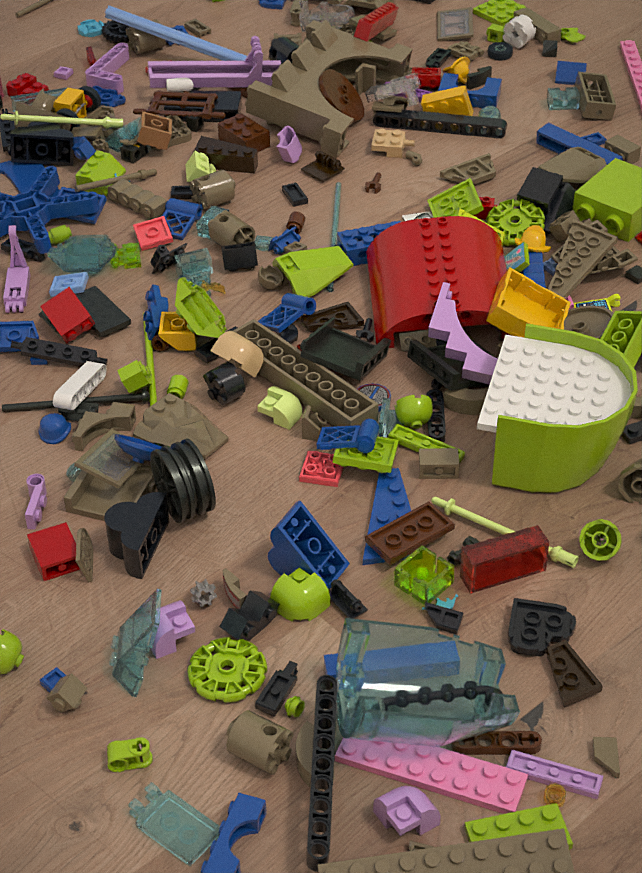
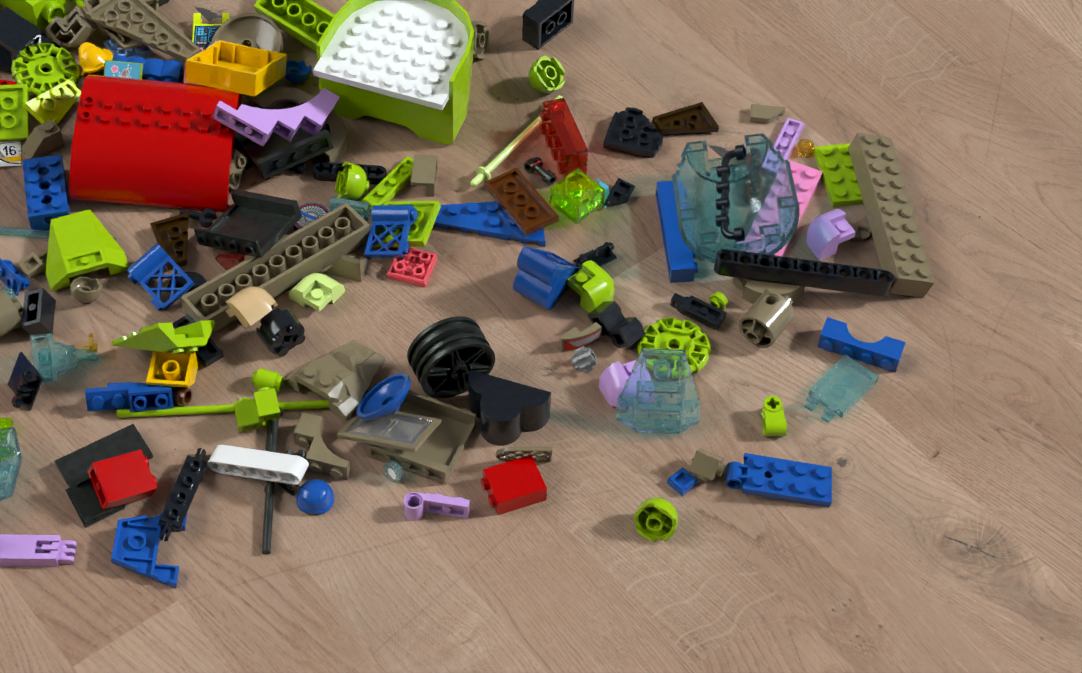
camera: 90 degrees left, 10 degrees up
(45, 771) = (789, 480): none -> blue hinge
(75, 281) = (41, 490): light blue tile -> none

